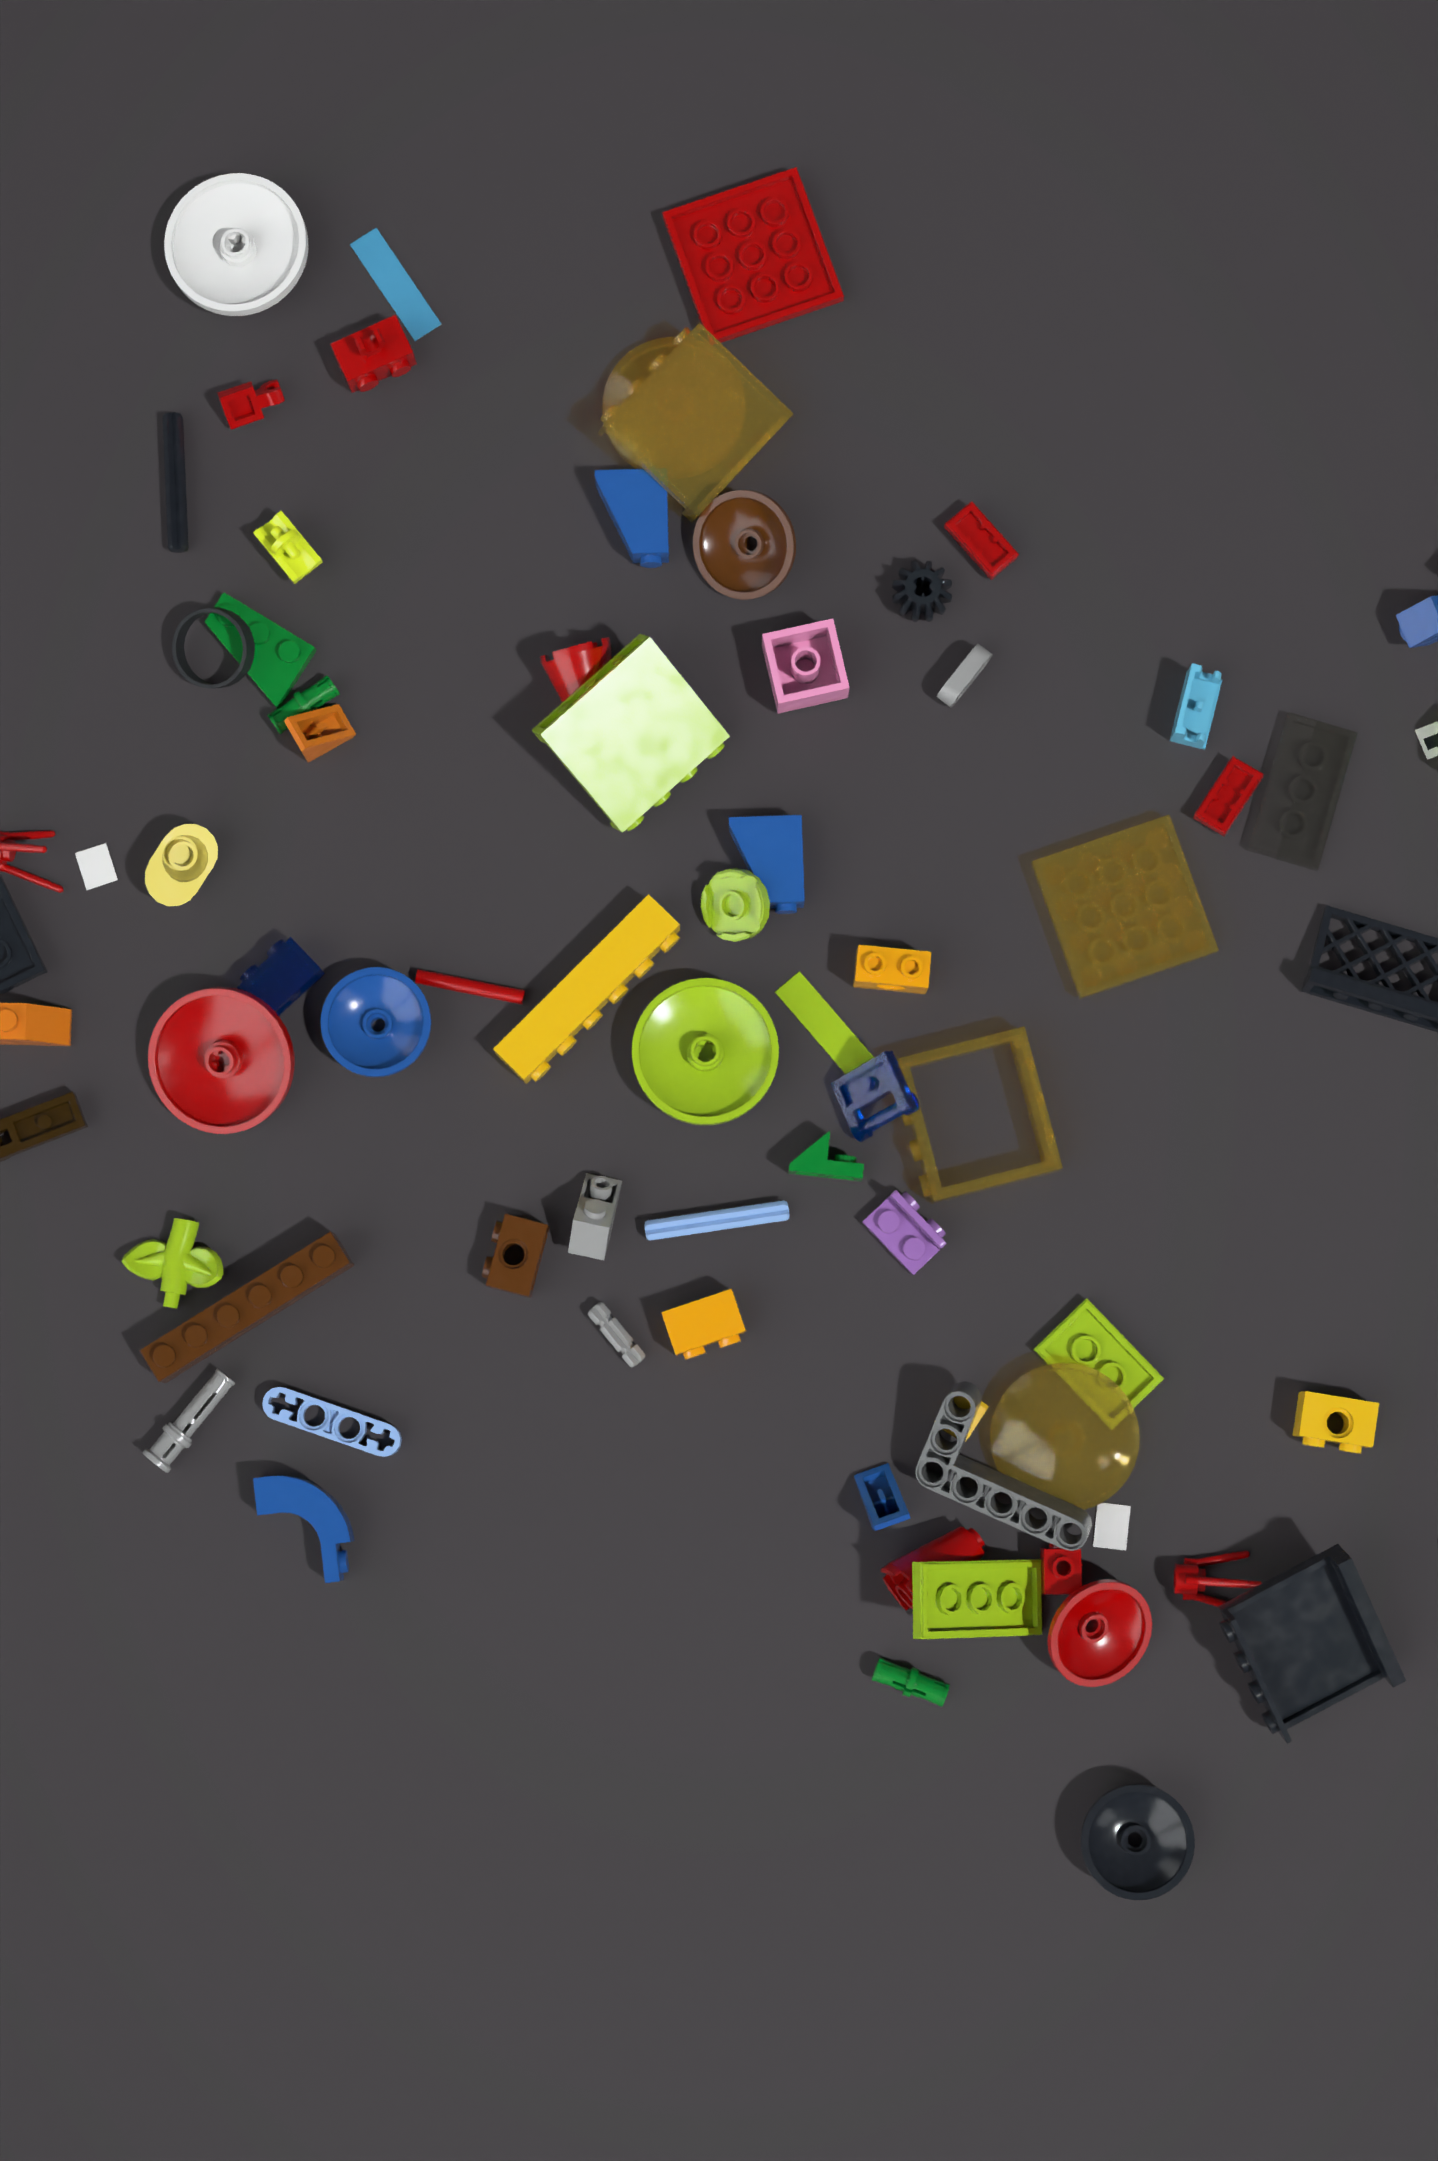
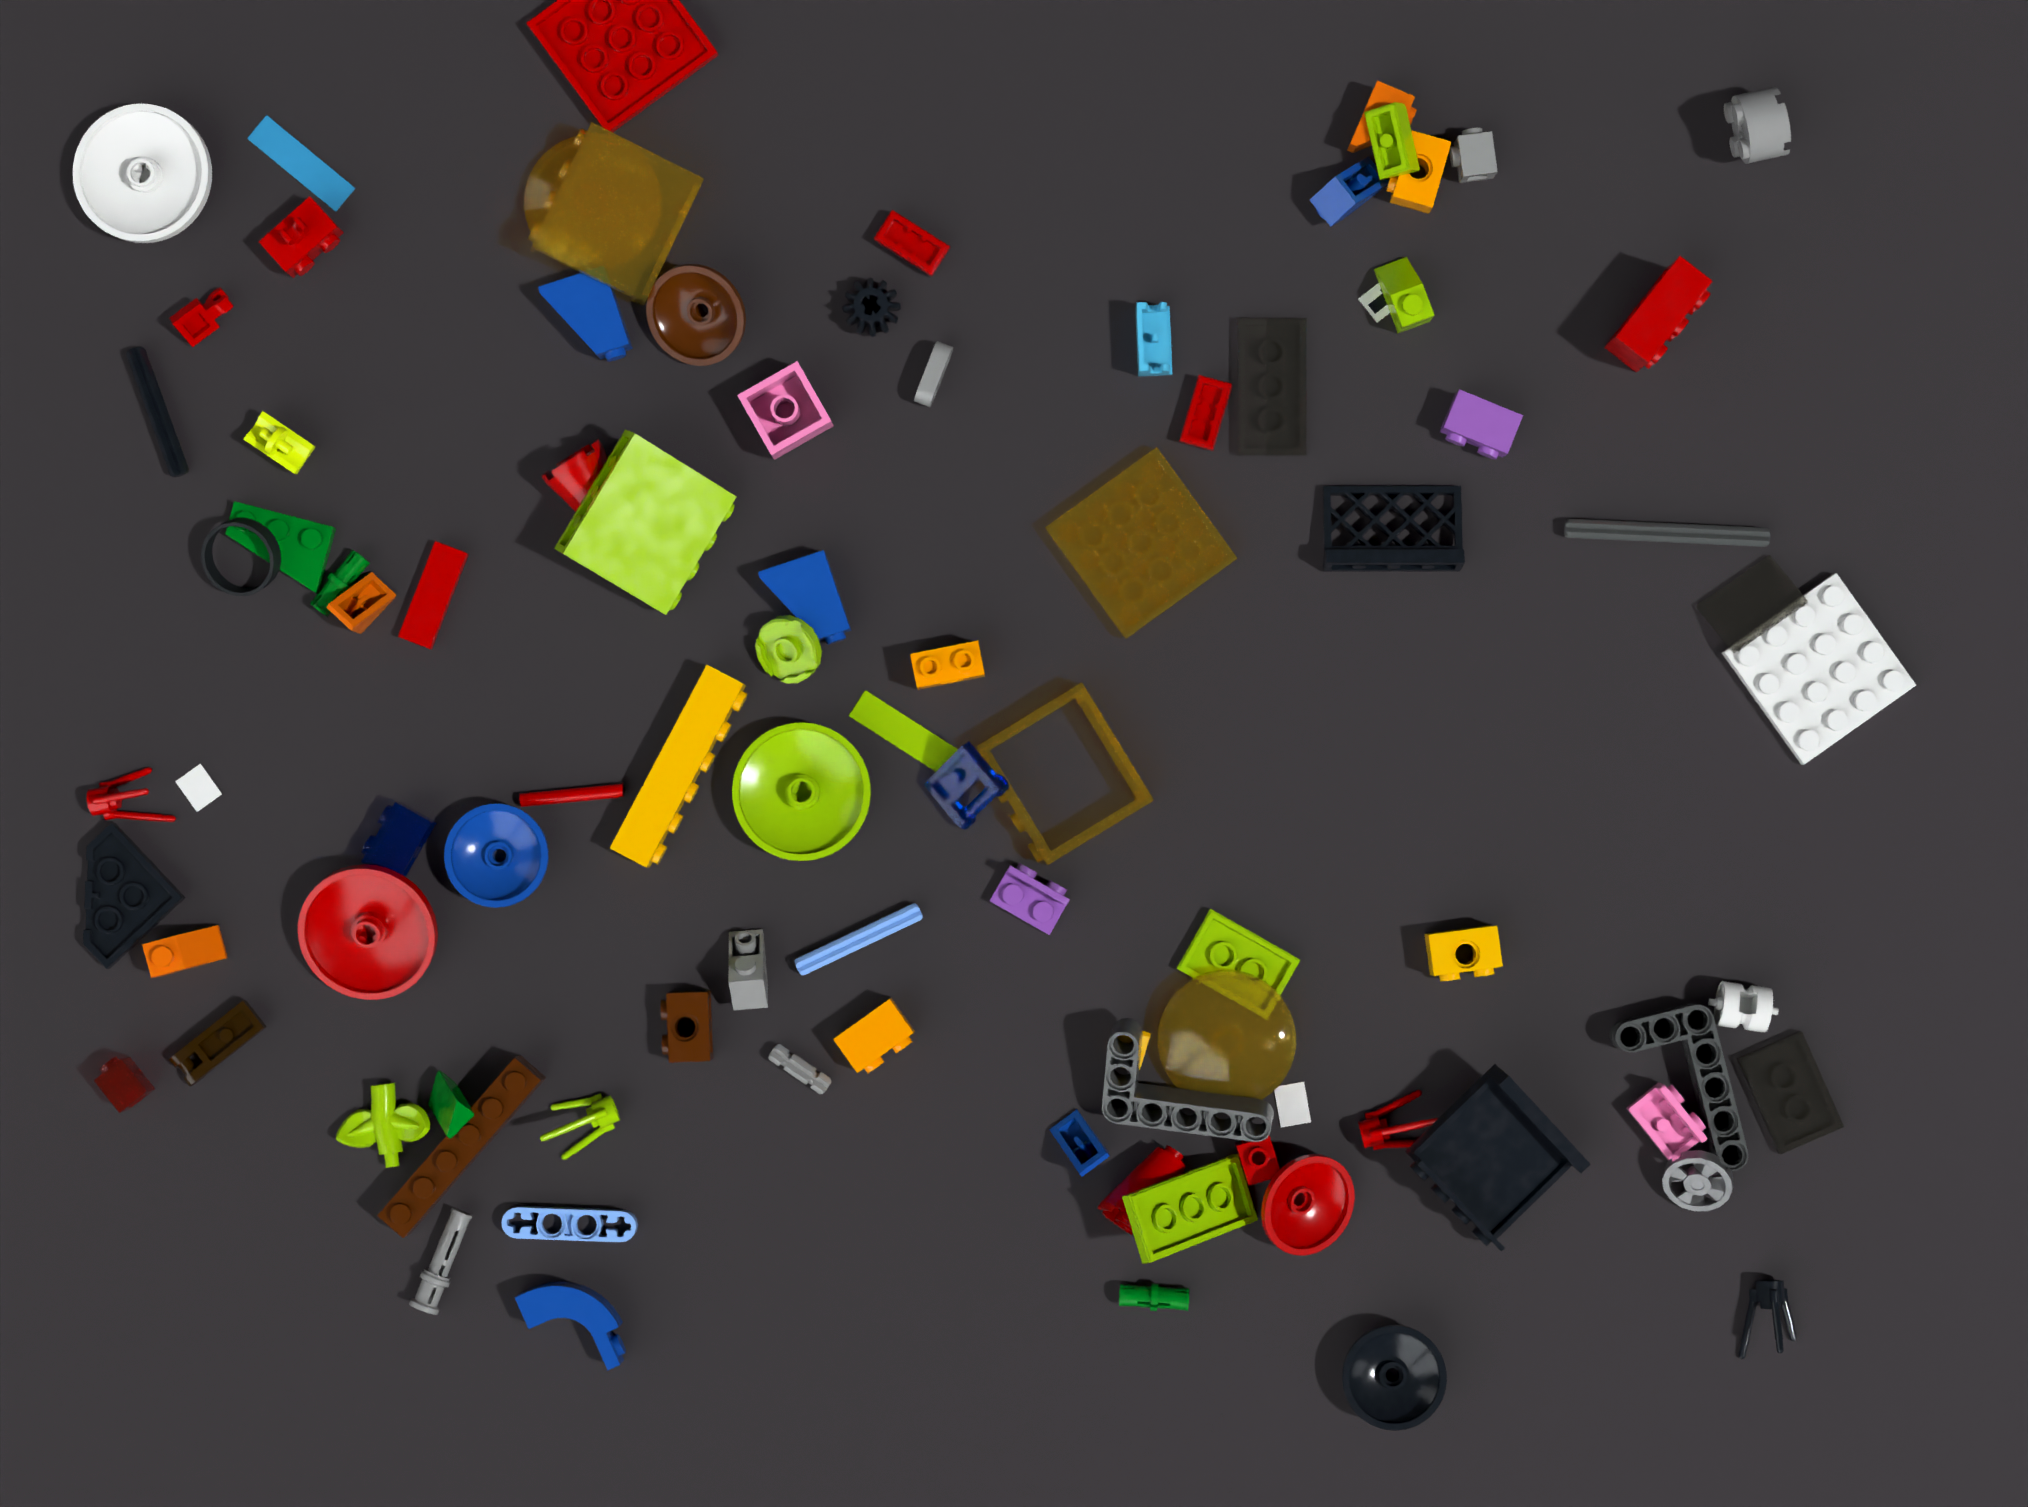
camera: 10 degrees left, 5 degrees up
(181, 864) = (274, 765): light yellow piece -> none
(248, 1260) = (449, 1105): none -> green slope
(393, 745) = (433, 595): none -> red tile
(399, 1318) = (601, 1113): none -> lime plant
(815, 1163) = (930, 859): green slope -> none

